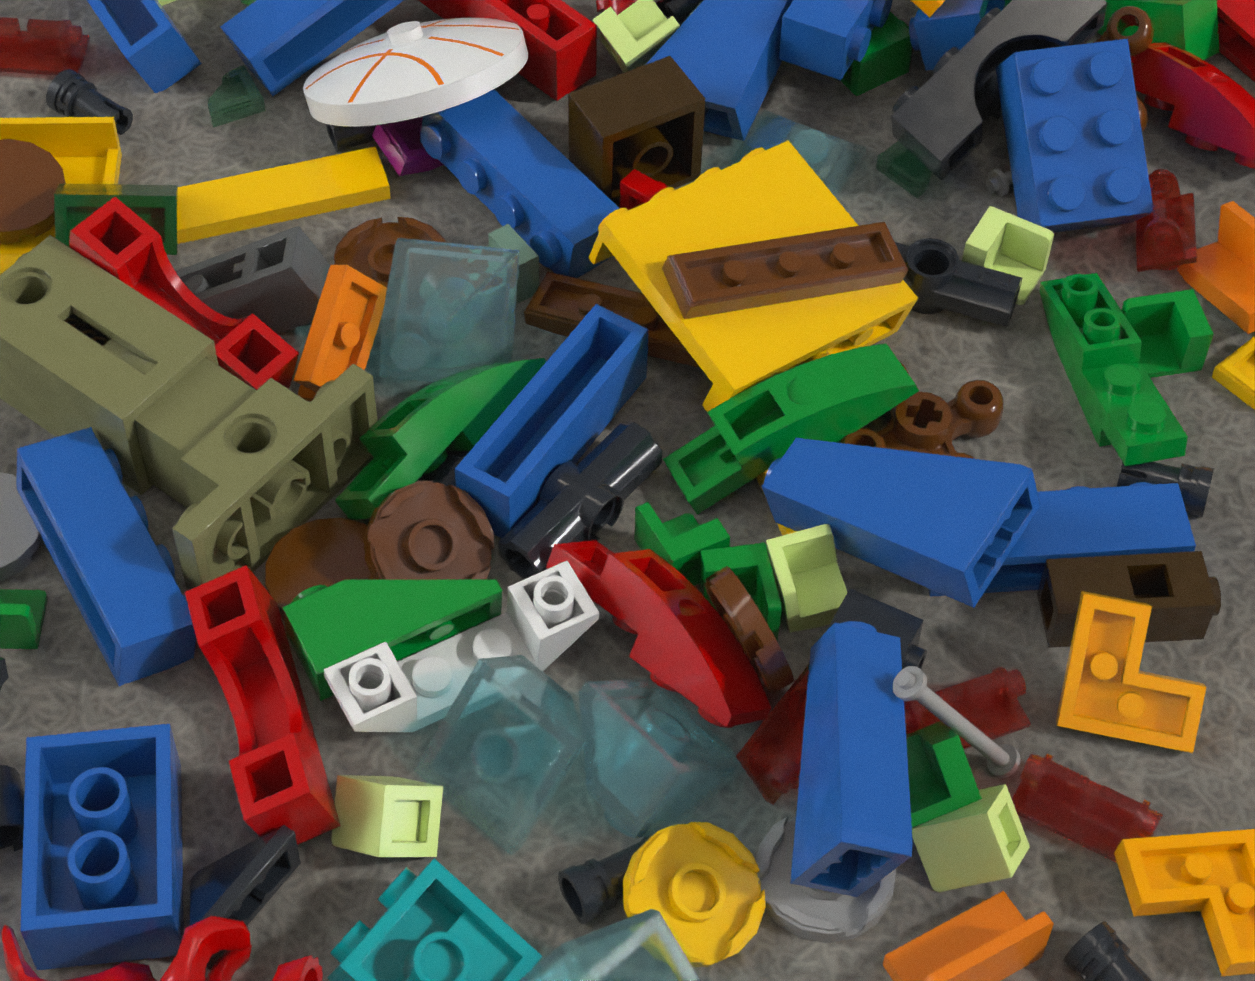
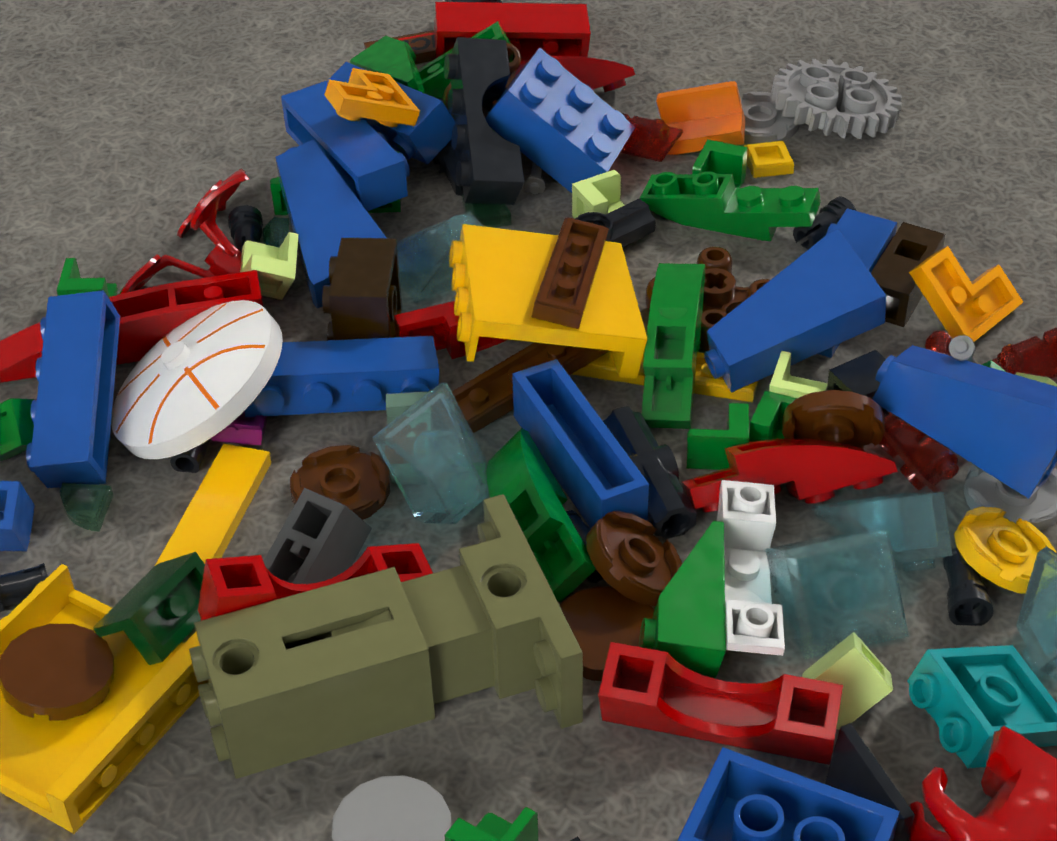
camera: 55 degrees left, 10 degrees down
(106, 554) = (501, 746): blue brick -> none
(340, 329) = (405, 515): orange panel -> none

